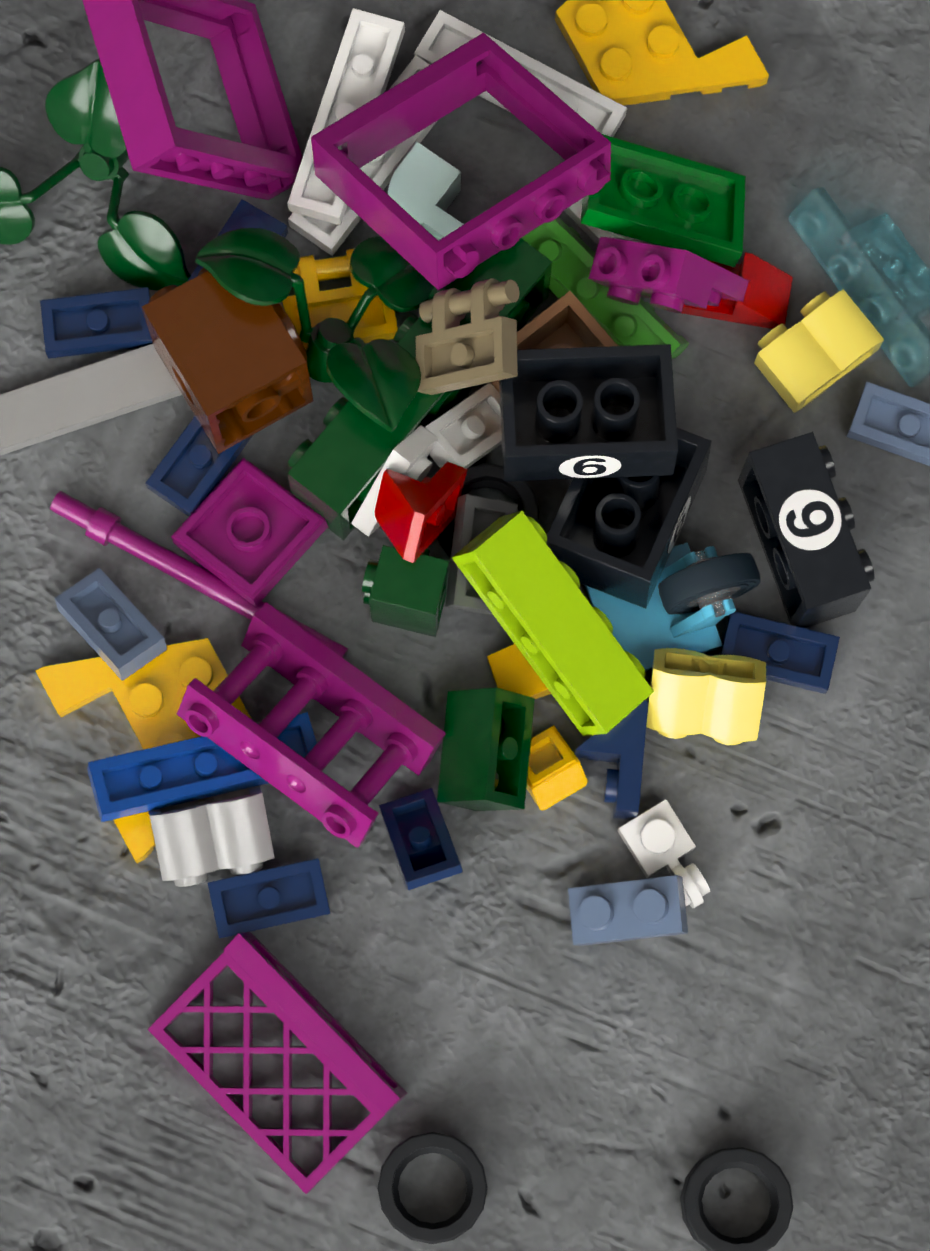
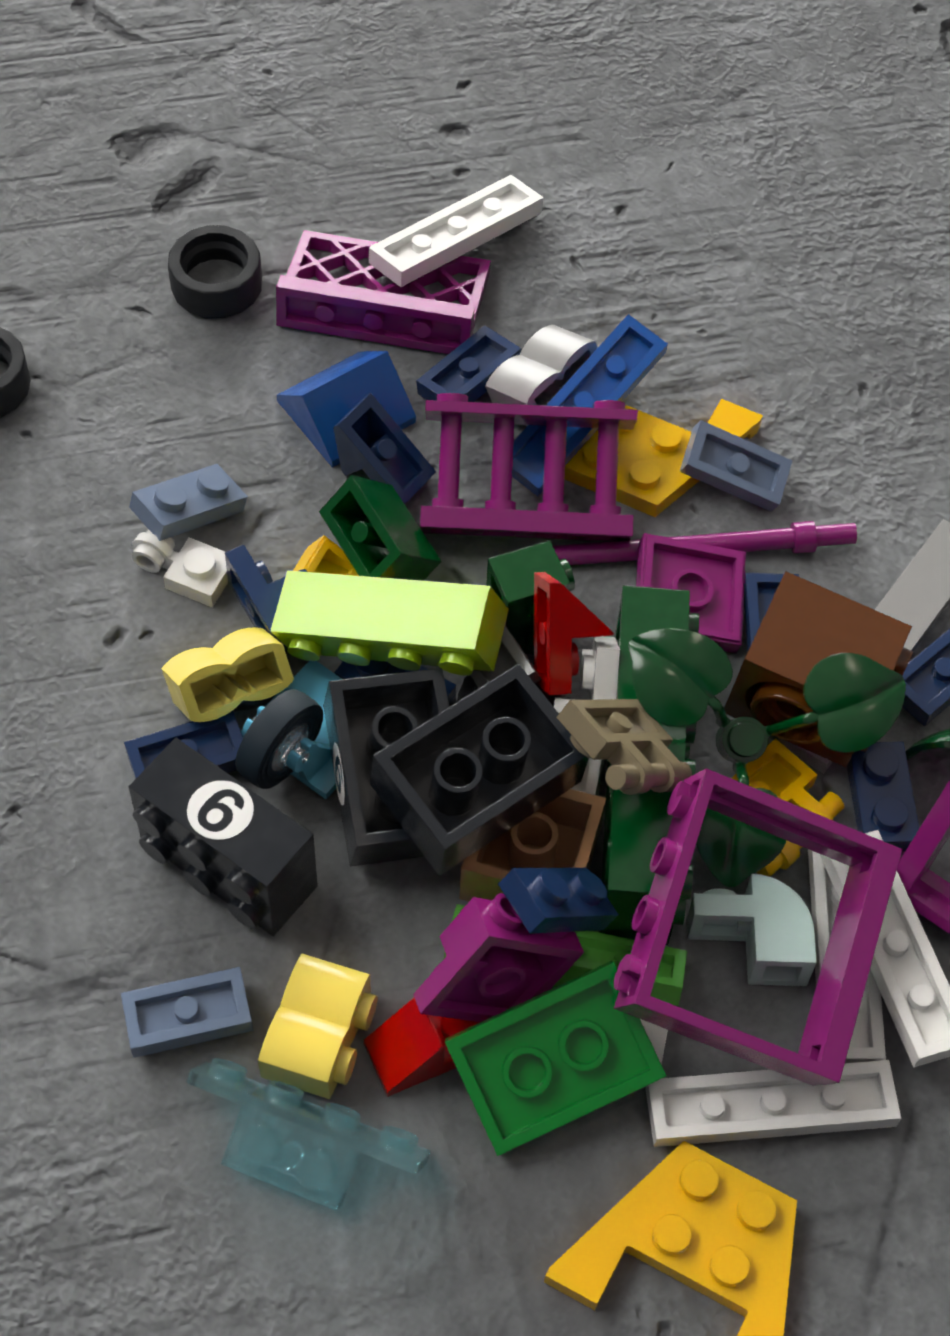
camera: 145 degrees right, 20 degrees down
(161, 1076) = (455, 230): none -> white plate
(406, 944) = (329, 395): none -> blue slope
(601, 268) = (558, 899): none -> dark blue plate

